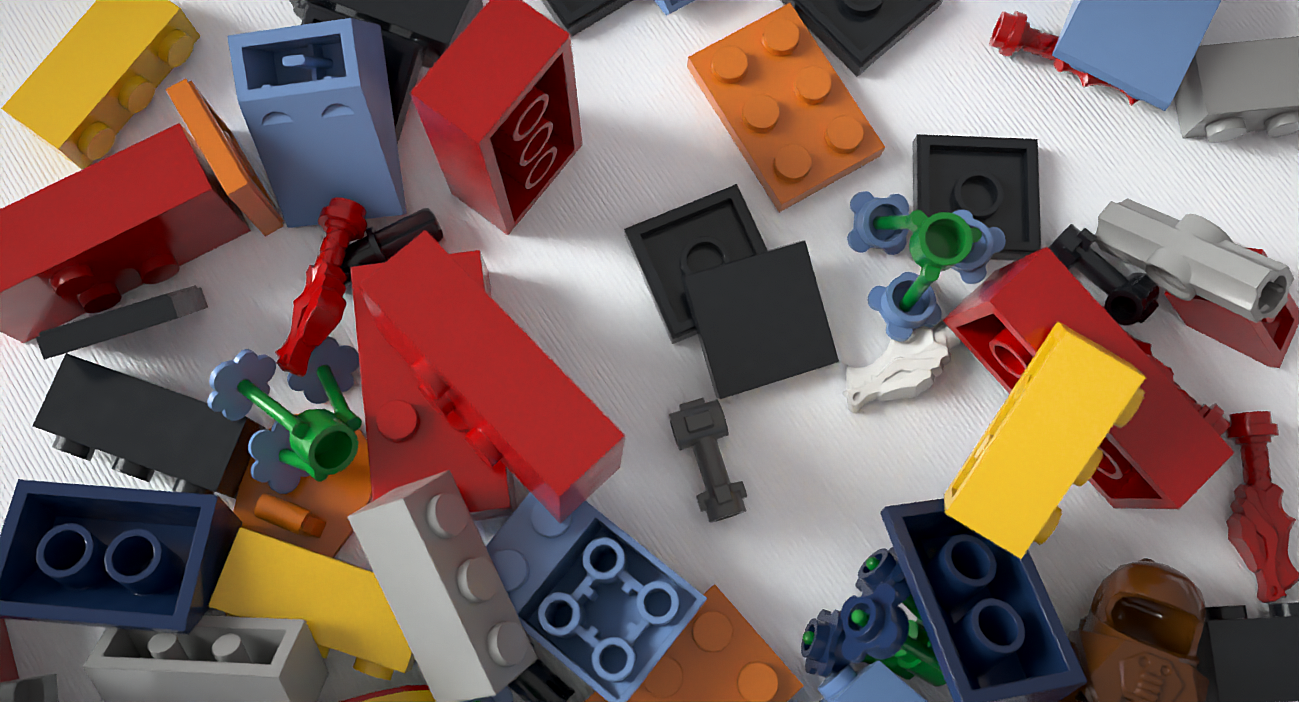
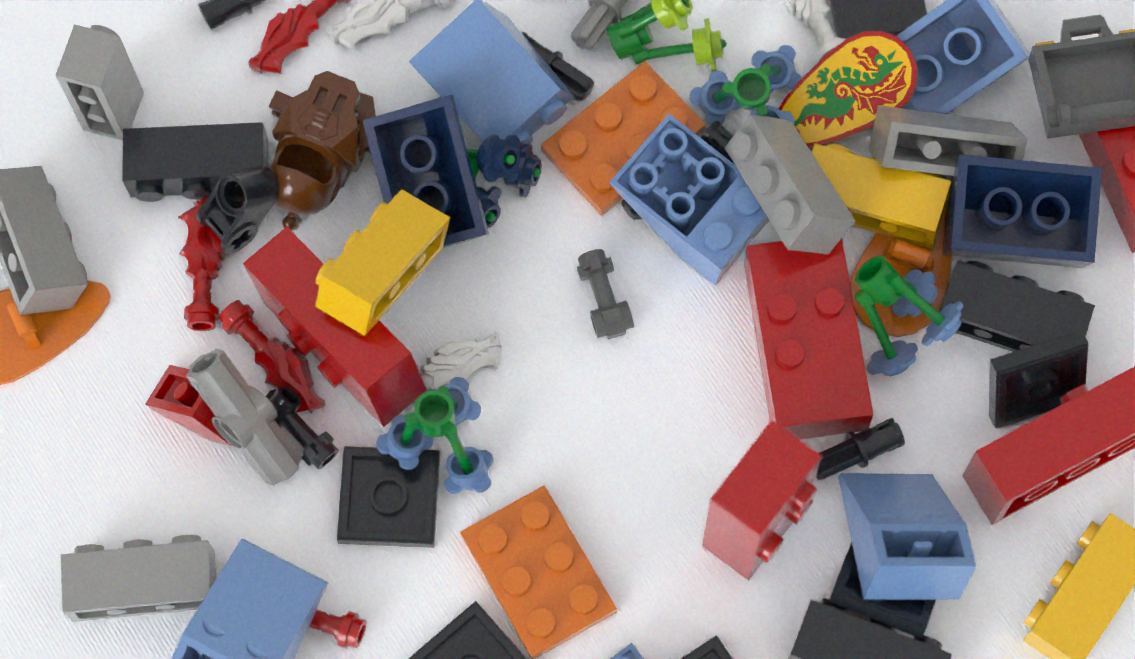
camera: 175 degrees left, 5 degrees down
(225, 157) = (977, 503): orange tile -> none
(322, 301) = (895, 394): red piece -> none
(492, 377) = (759, 301): red brick -> none
(688, 241) = (605, 444): black tile -> none
(760, 319) = (564, 392): black tile -> none
(1237, 565) = (239, 206): none -> black piece

